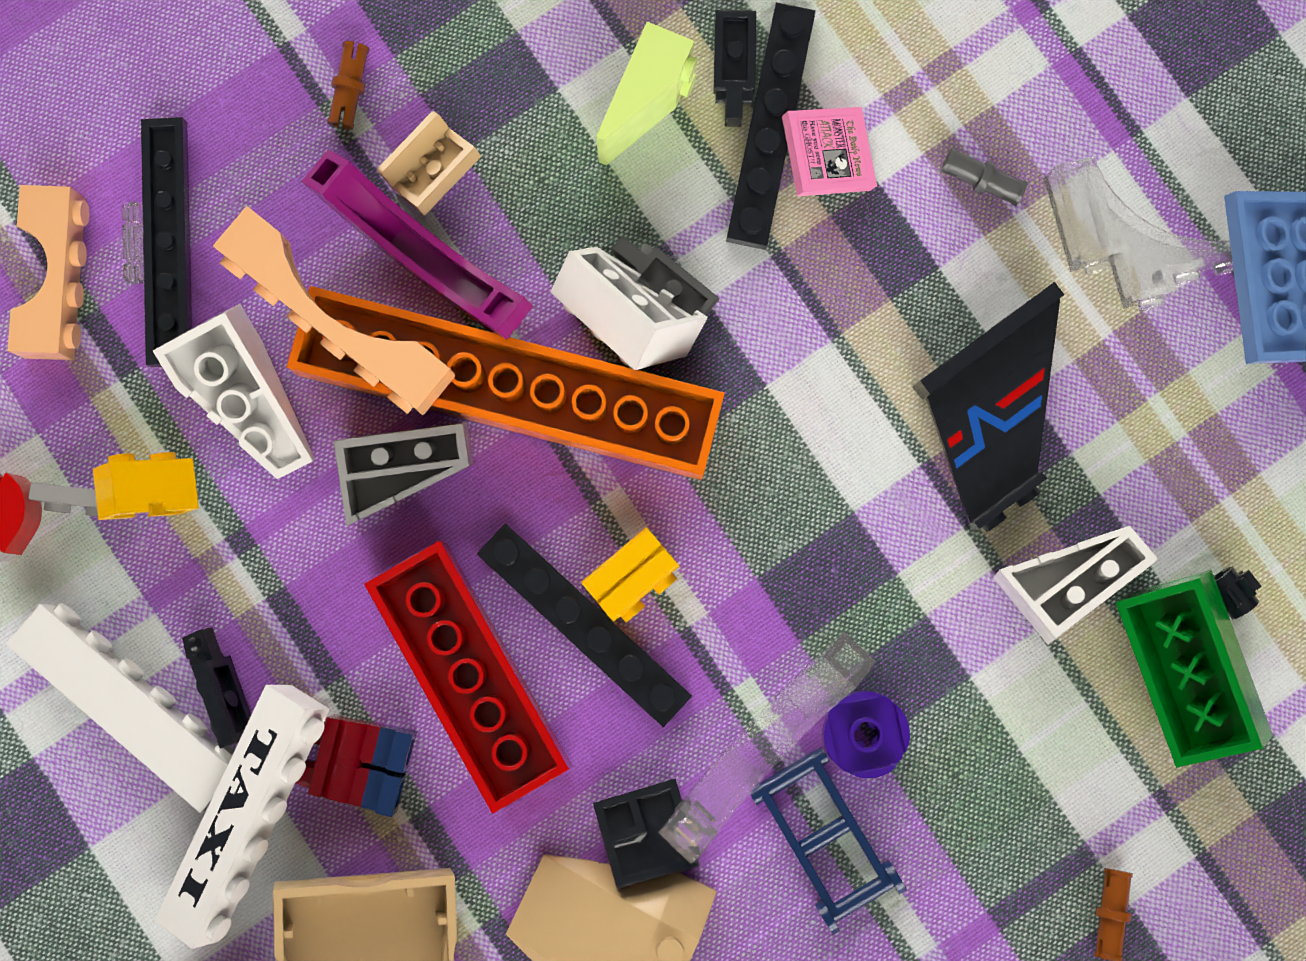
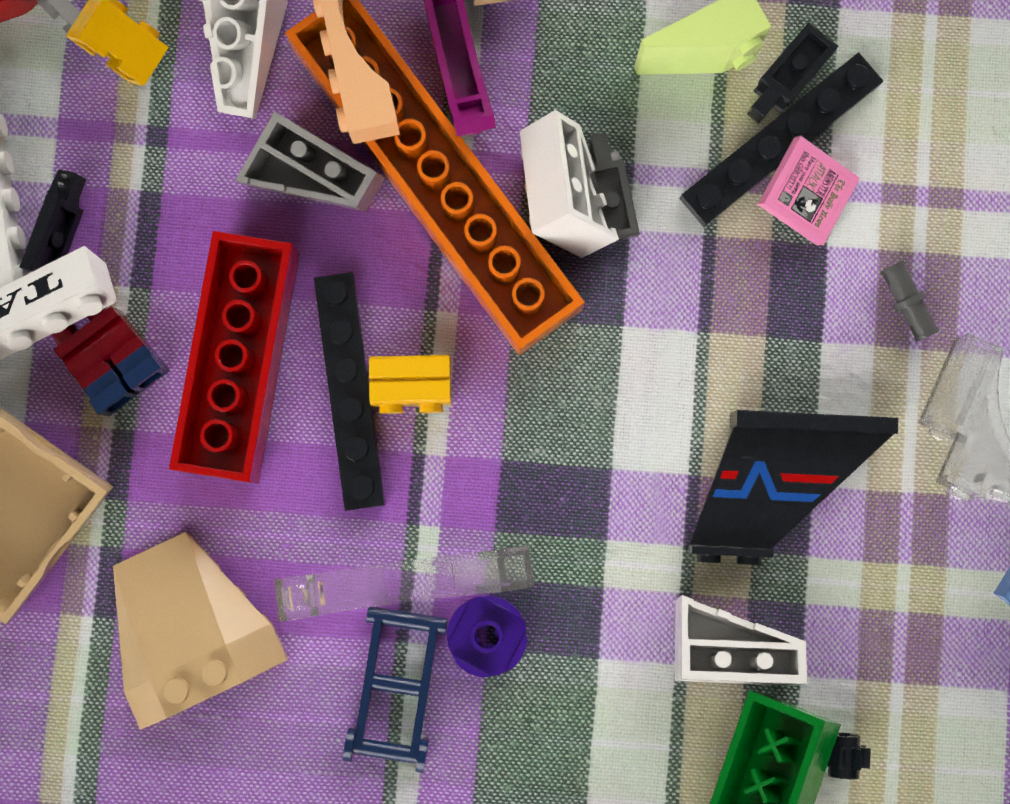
camera: 40 degrees right, 0 degrees up
(631, 834) = (256, 564): black plate -> none

